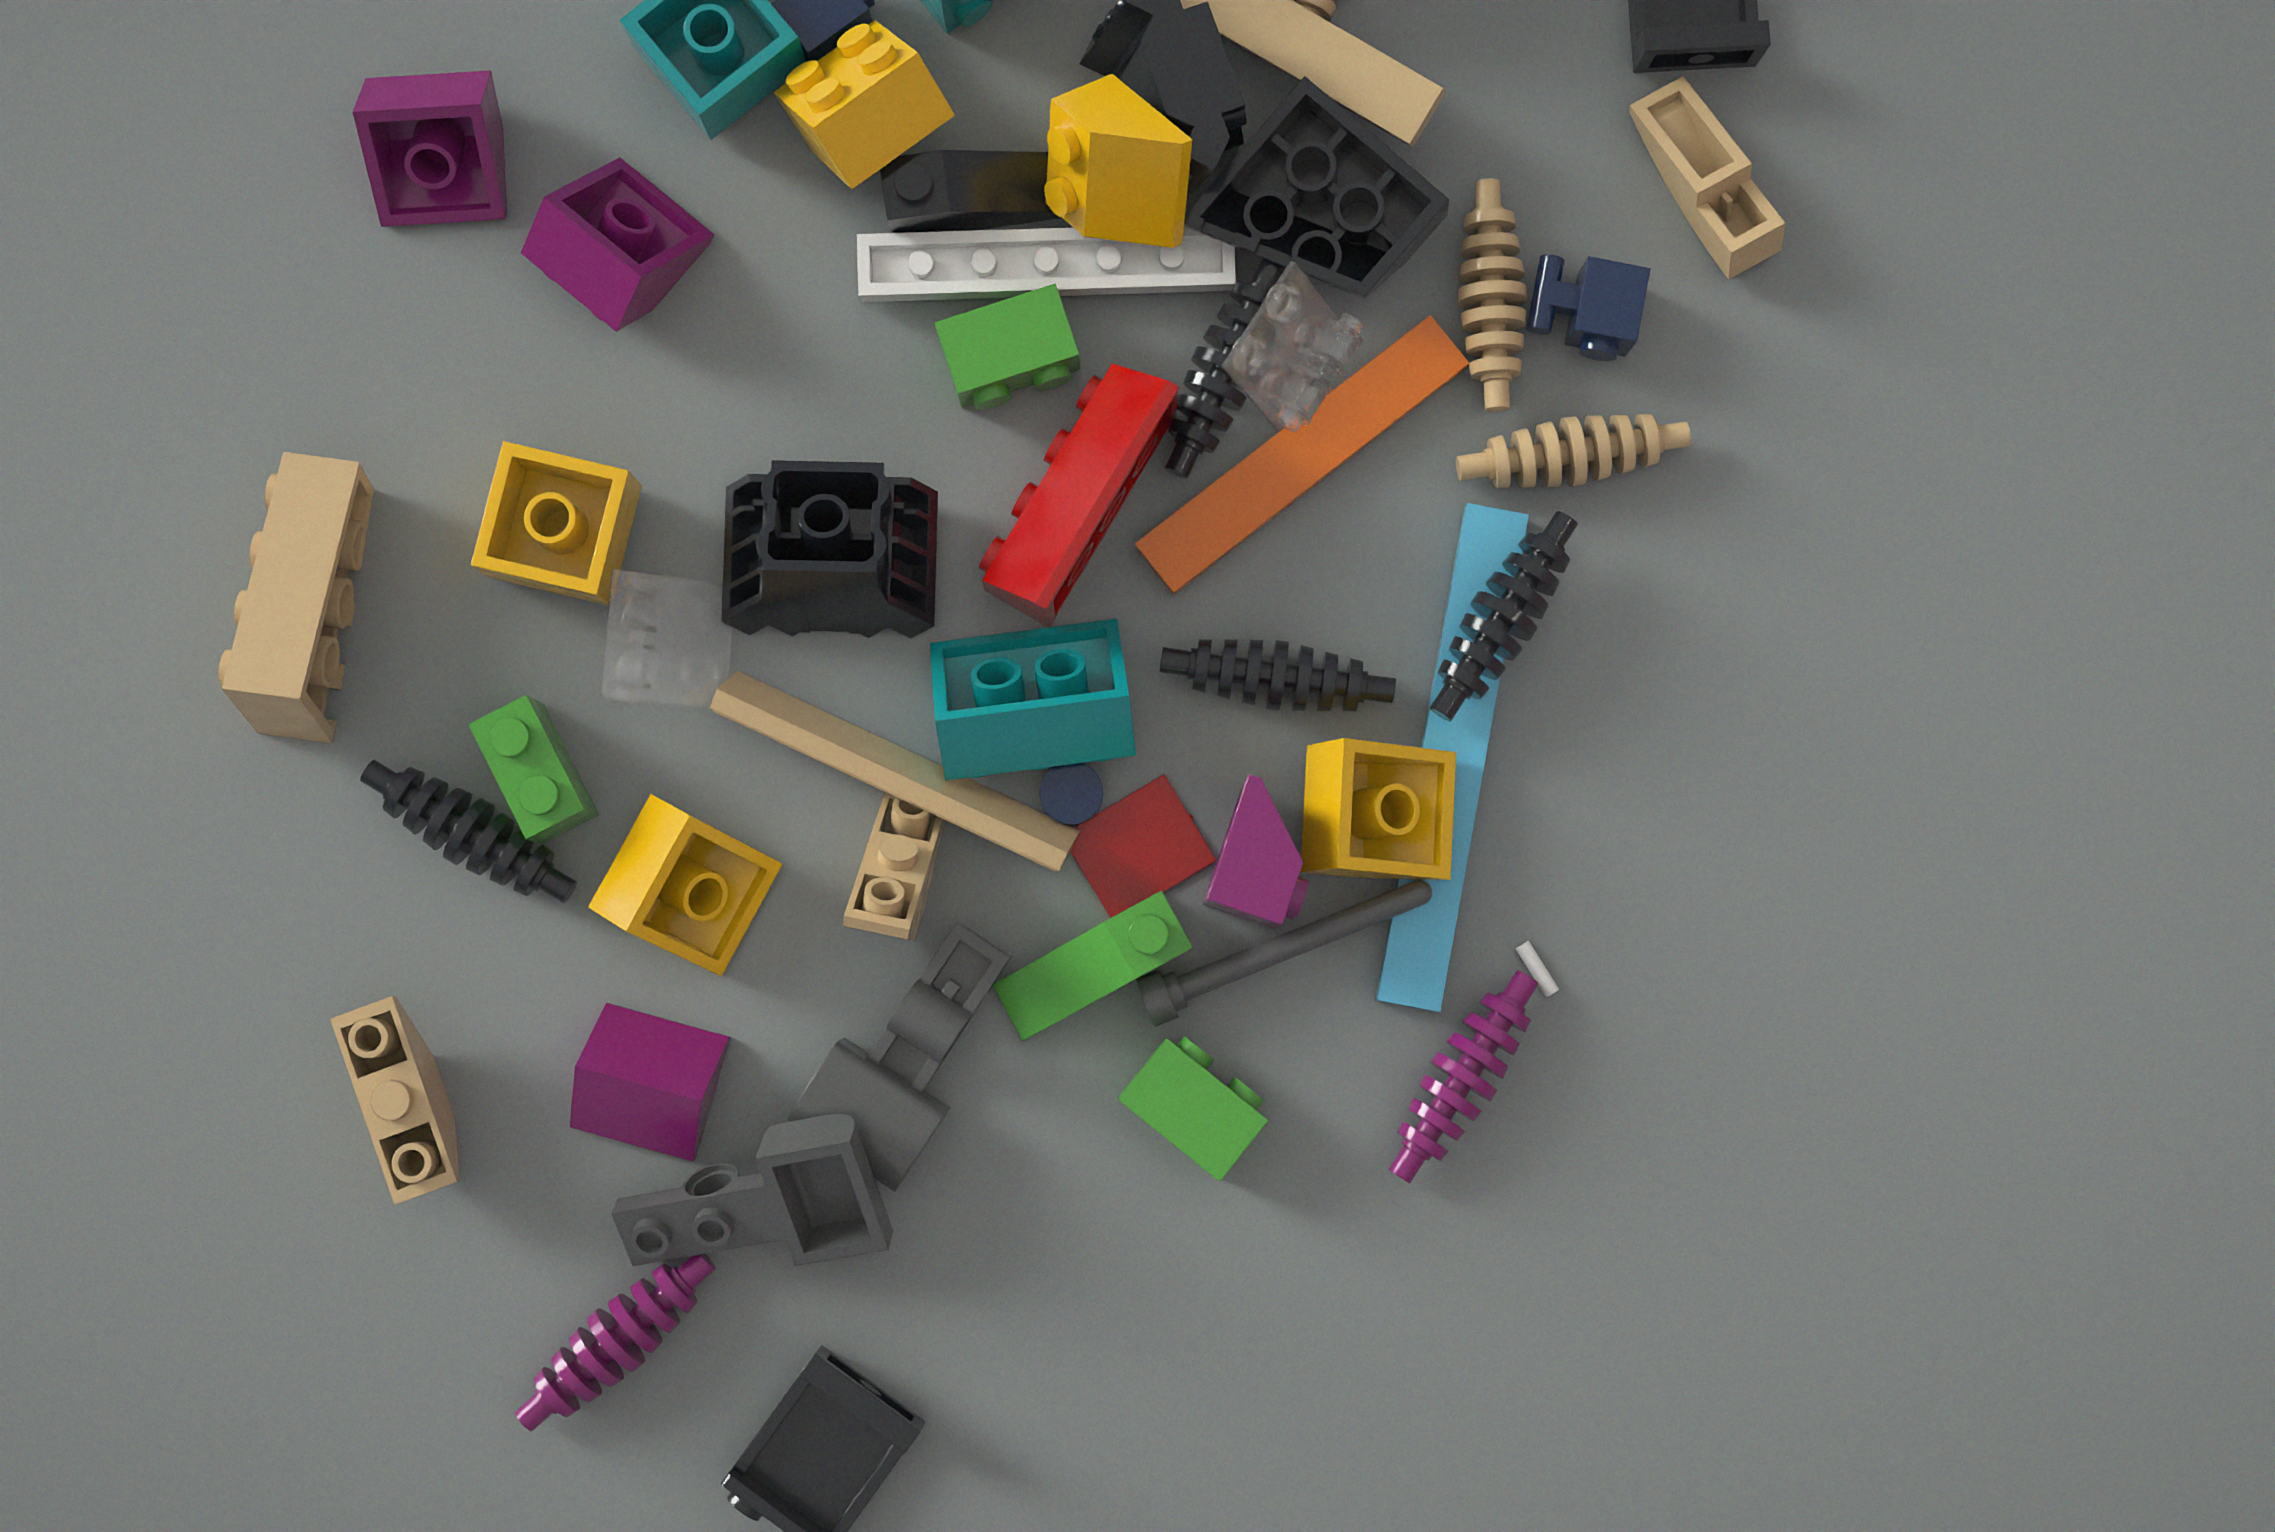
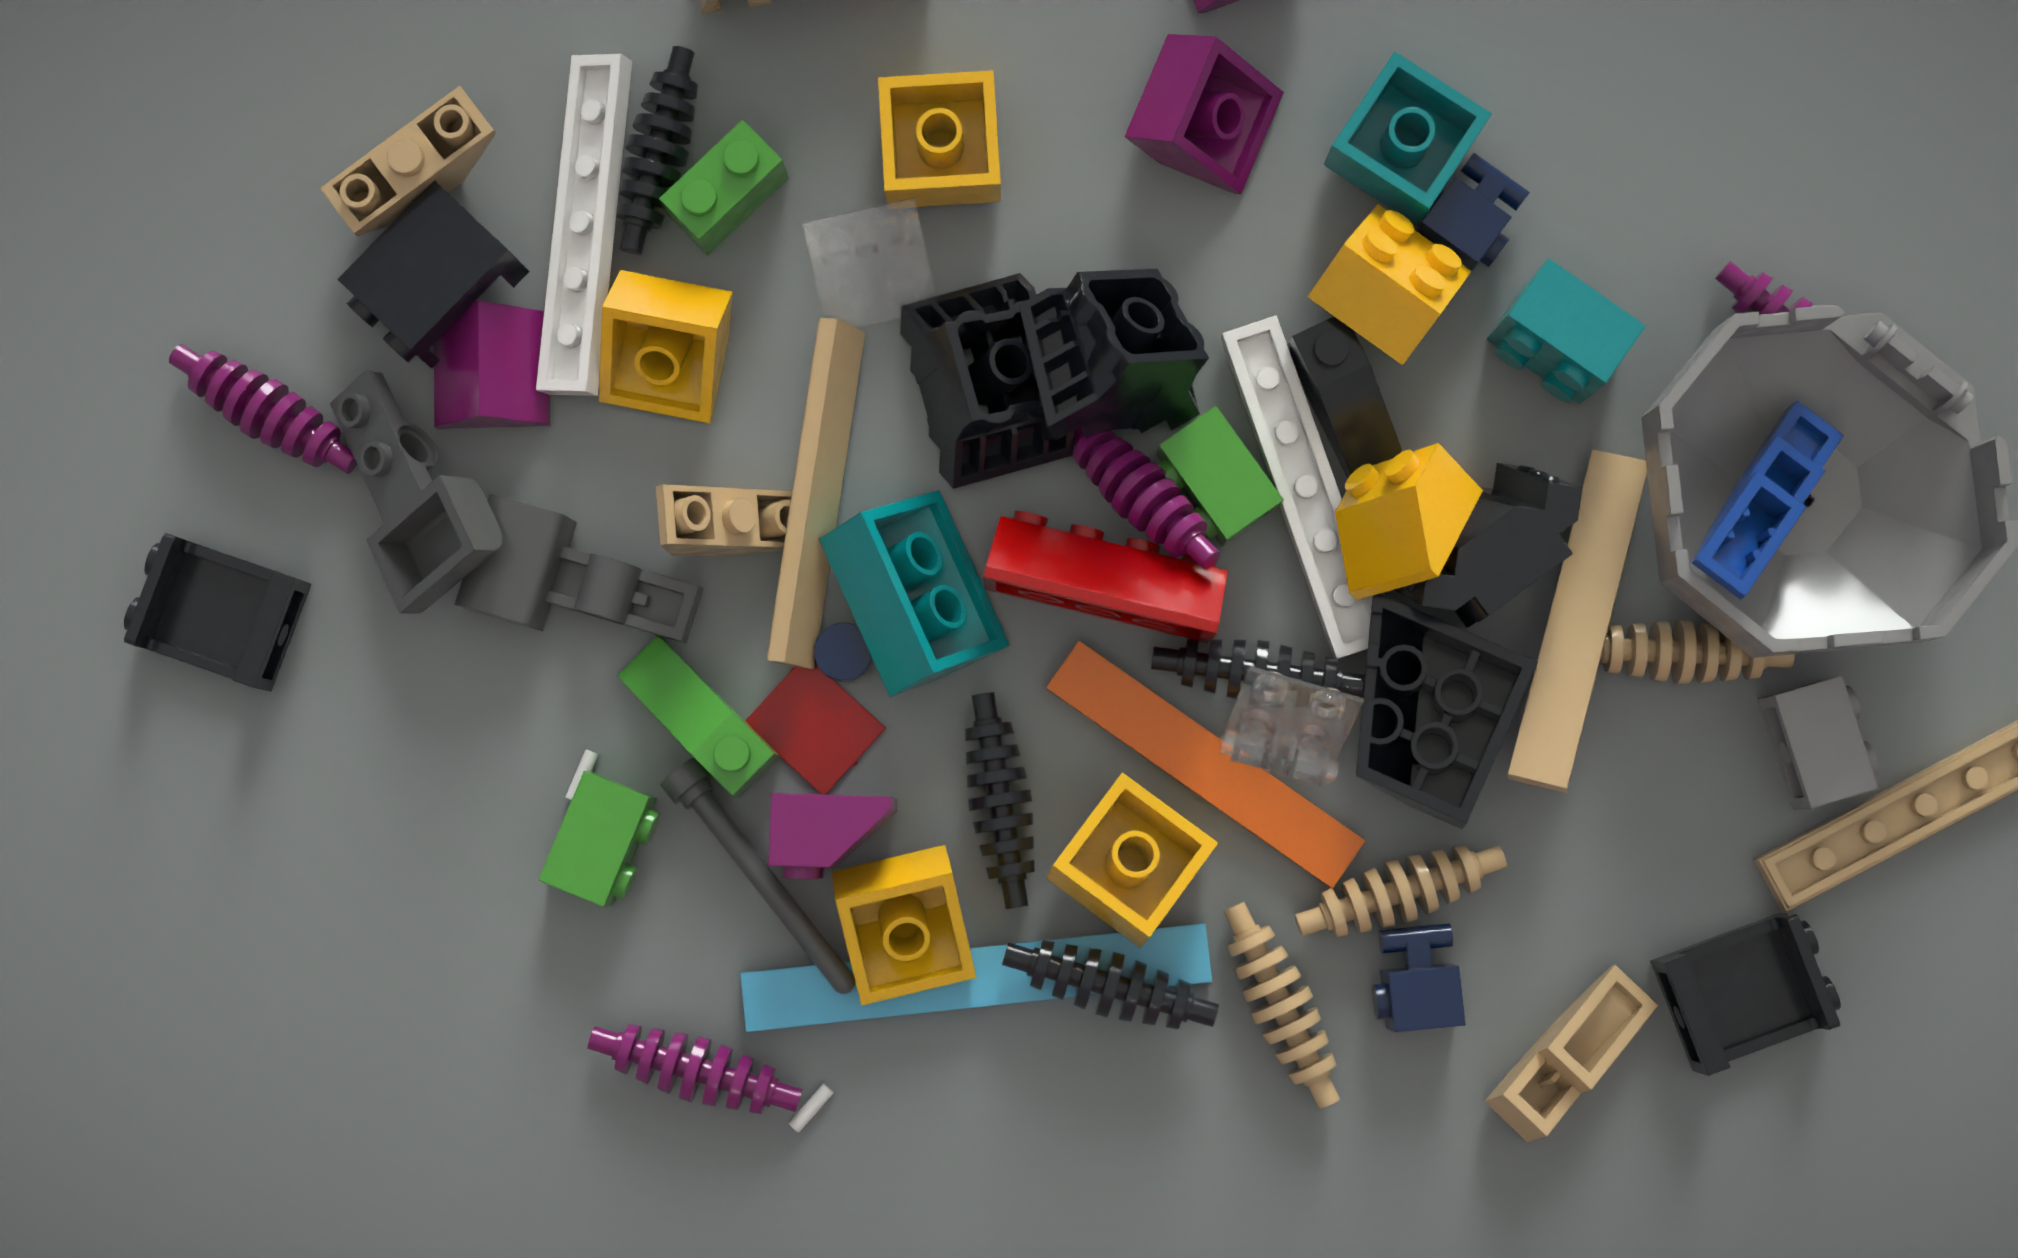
camera: 80 degrees right, 0 degrees up
(524, 933) = (584, 224): none -> white plate
(524, 1115) = (427, 273): none -> black panel
(846, 406) = (1113, 353): none -> black slope
(1002, 427) = (1144, 495): none -> magenta piece
(1118, 1109) = (586, 764): none -> white piece
(1383, 554) = (1131, 860): none -> yellow brick

